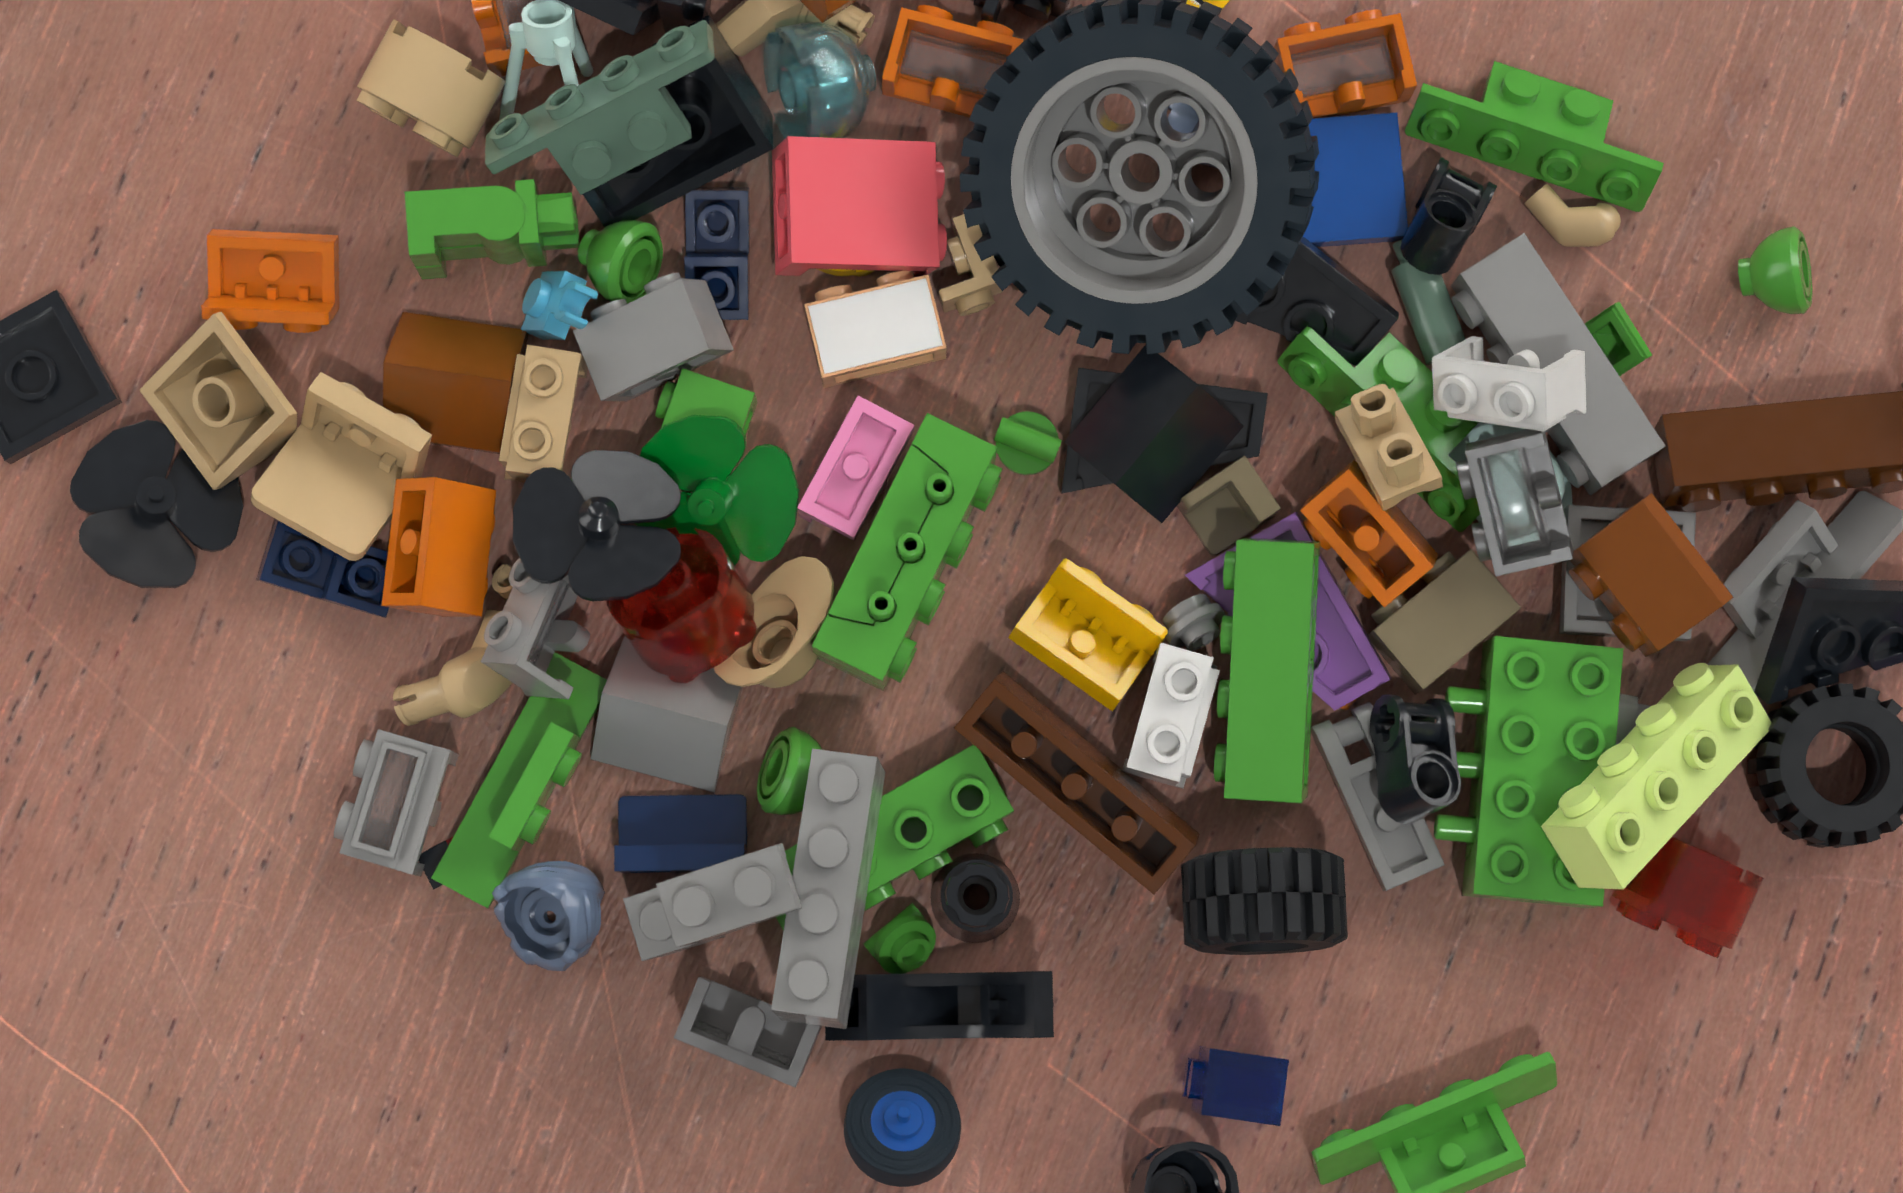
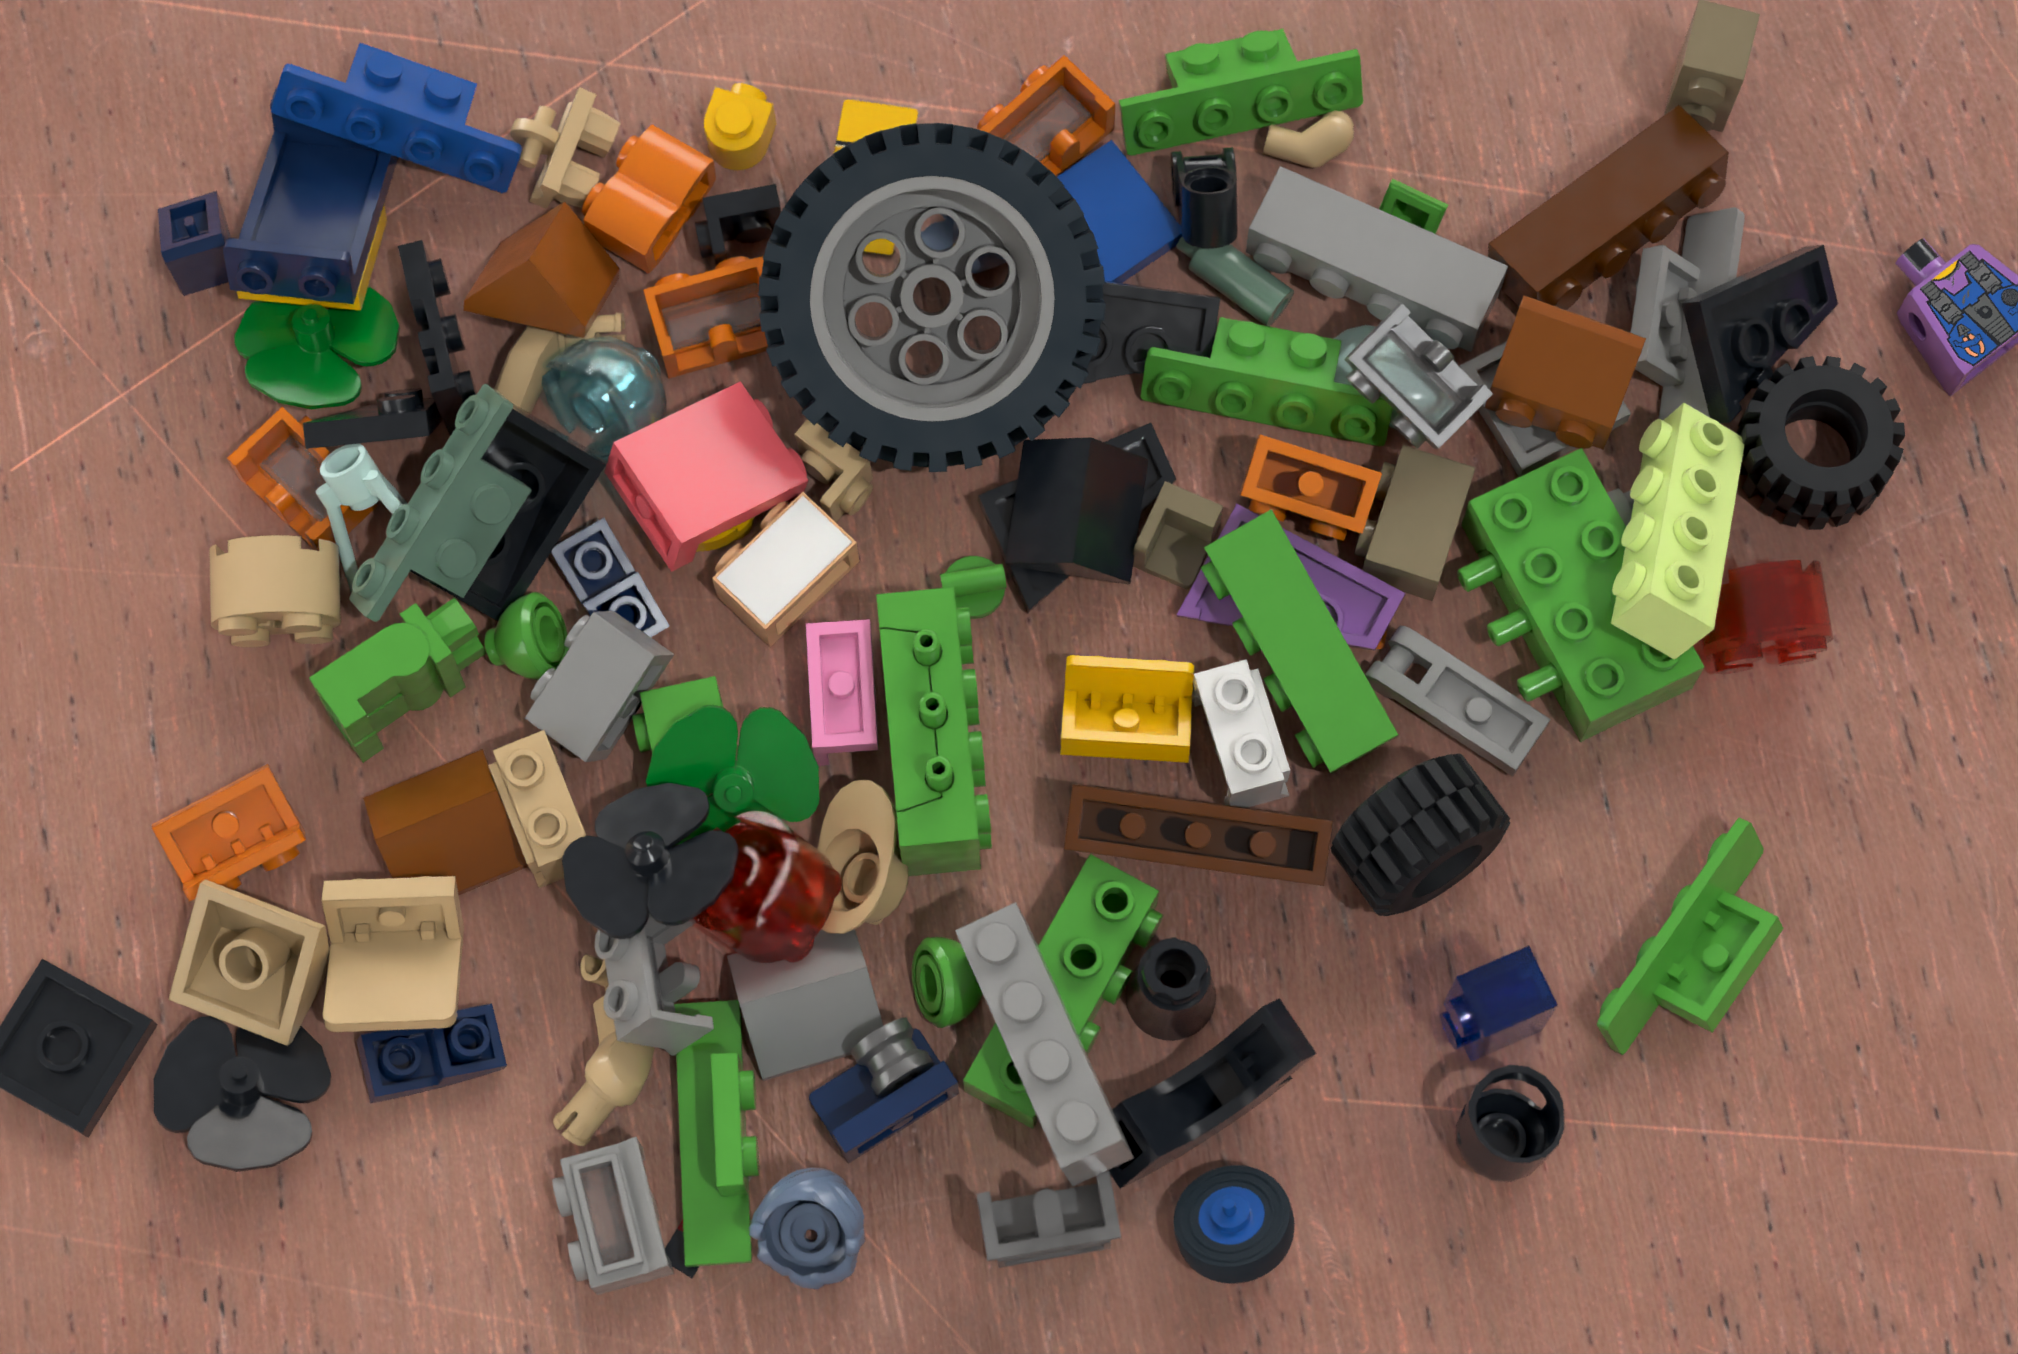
camera: 25 degrees left, 10 degrees down
(439, 547) = (518, 972): orange brick -> none
(555, 304) = (494, 707): medium azure plate -> none
(705, 812) = (891, 1056): none -> flat silver wheel
(712, 902) = (950, 1117): light grey arch -> none
(903, 942) = (1133, 1066): bright green plate -> none
(1193, 622) = (1209, 645): light grey plate -> none
(1387, 446) = (1279, 398): tan hips -> none
(1413, 756) = (1470, 644): black piece -> none
(1508, 393) = (1349, 293): white window -> none
(1779, 272) = (1506, 83): bright green brick -> none

